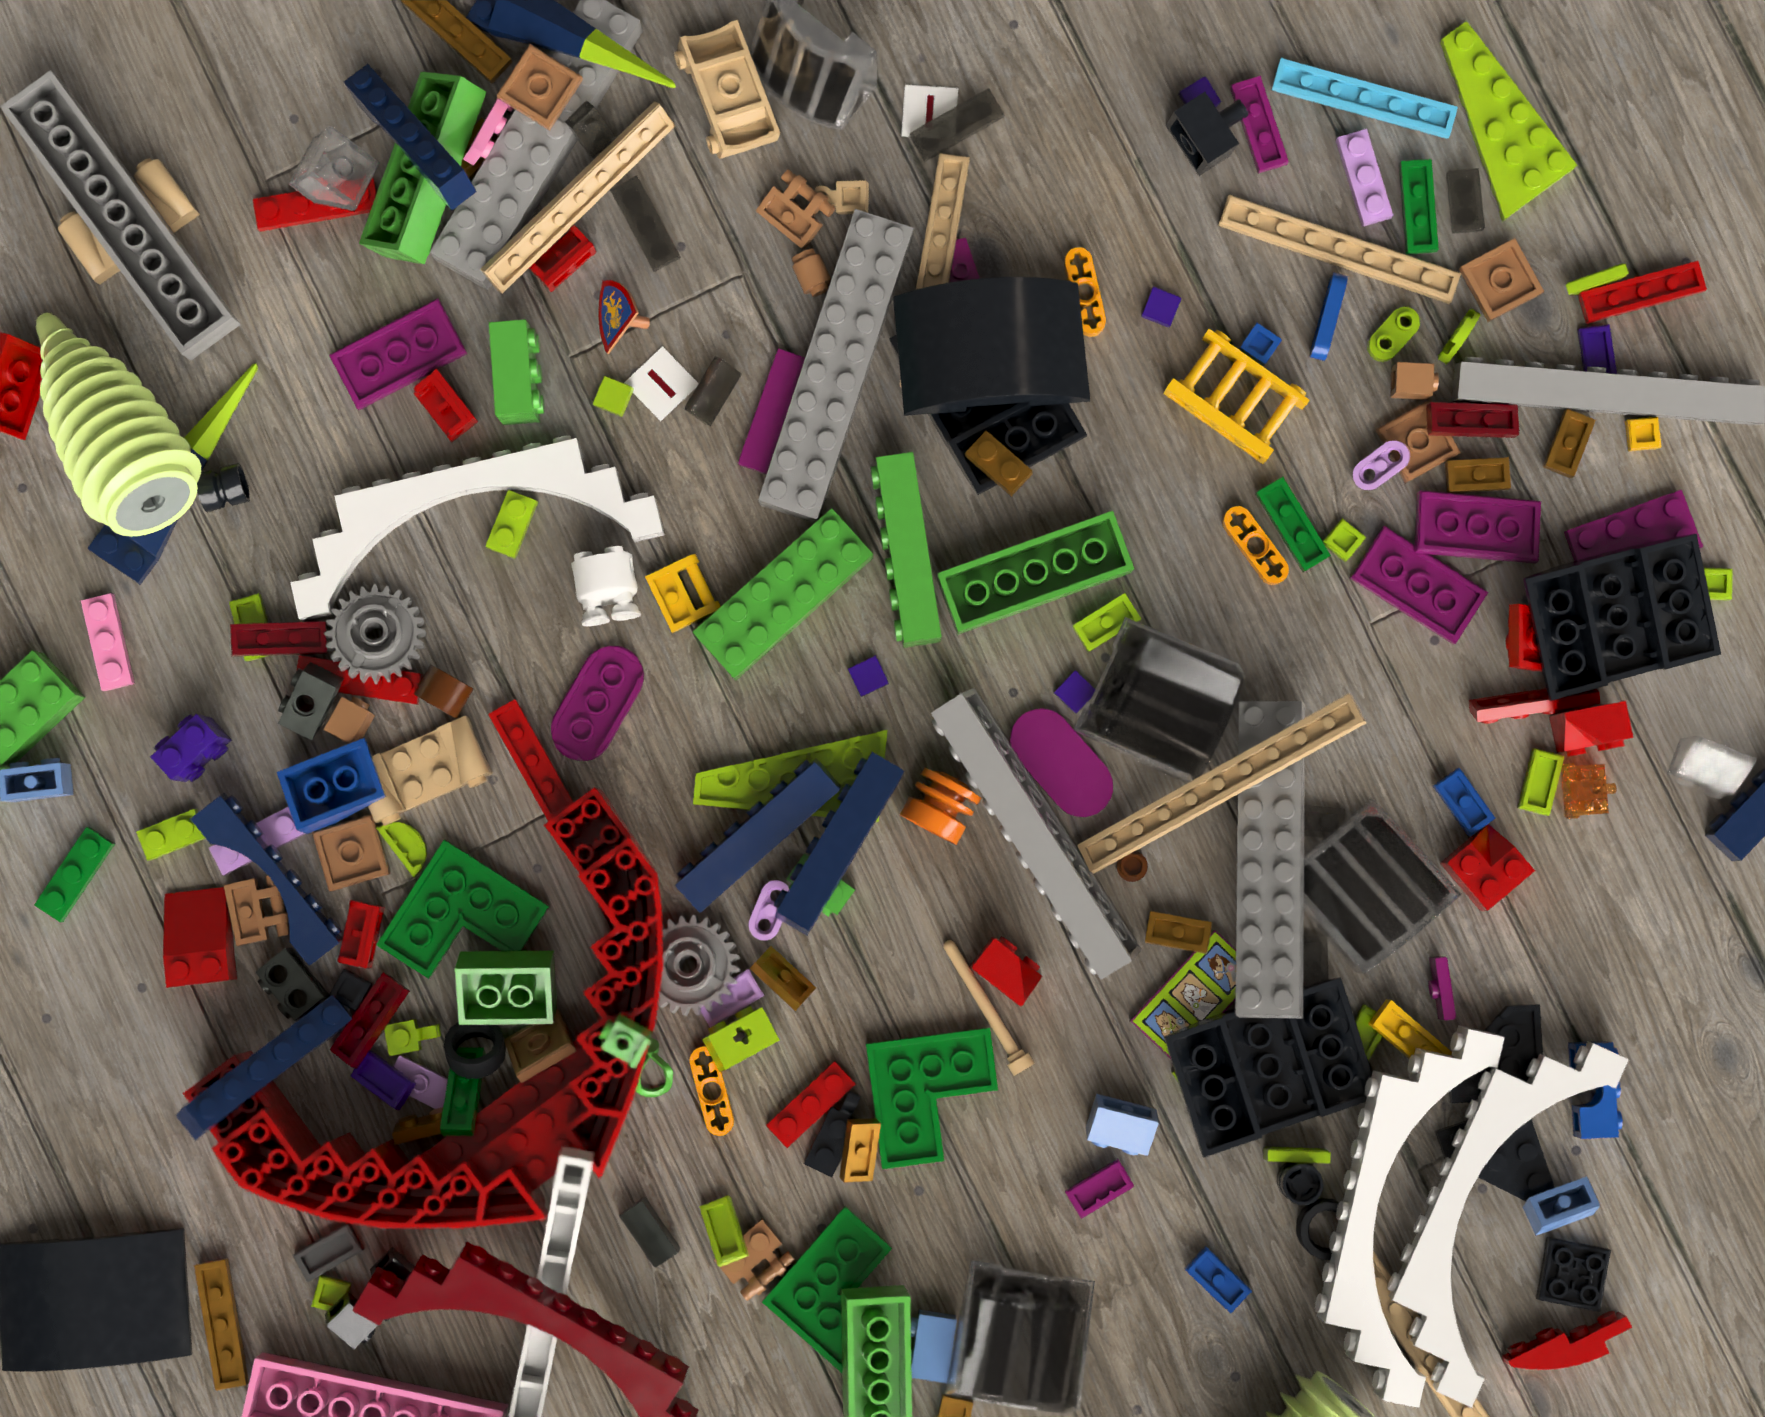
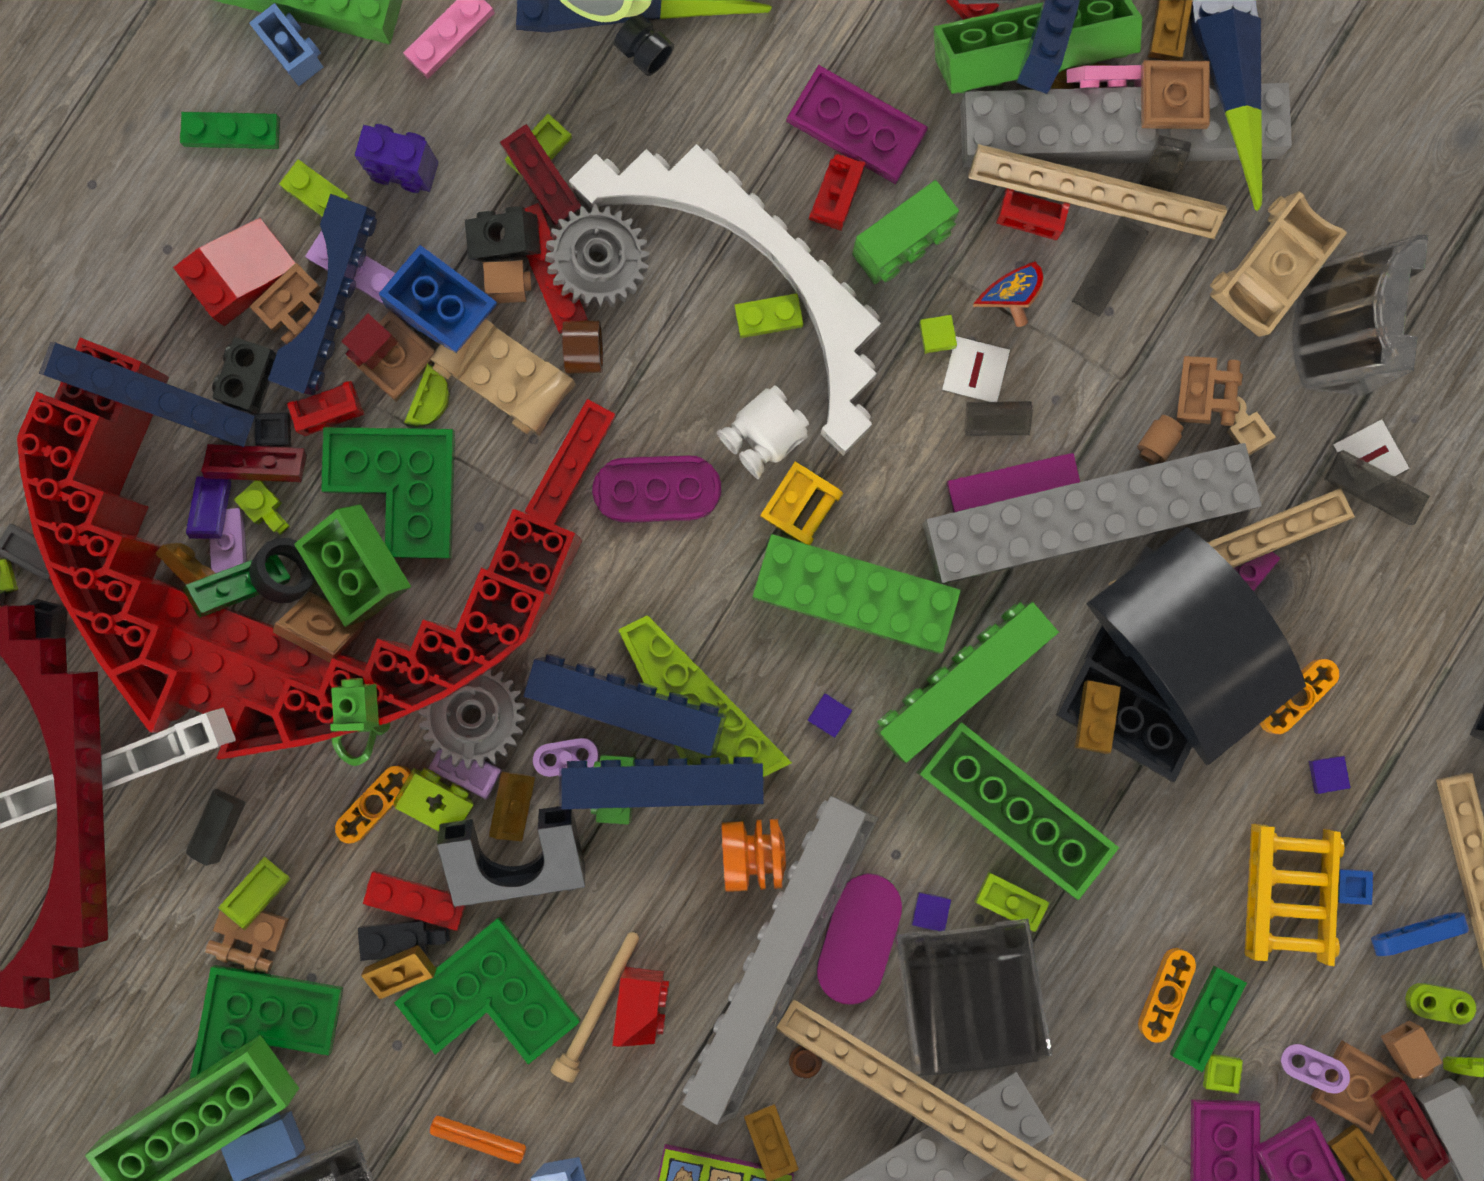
camera: 65 degrees right, 0 degrees up
(330, 864) = (368, 342): none -> dark red brick
(825, 1040) = (478, 879): none -> arch
(1033, 1168) = (477, 1139): none -> orange axle

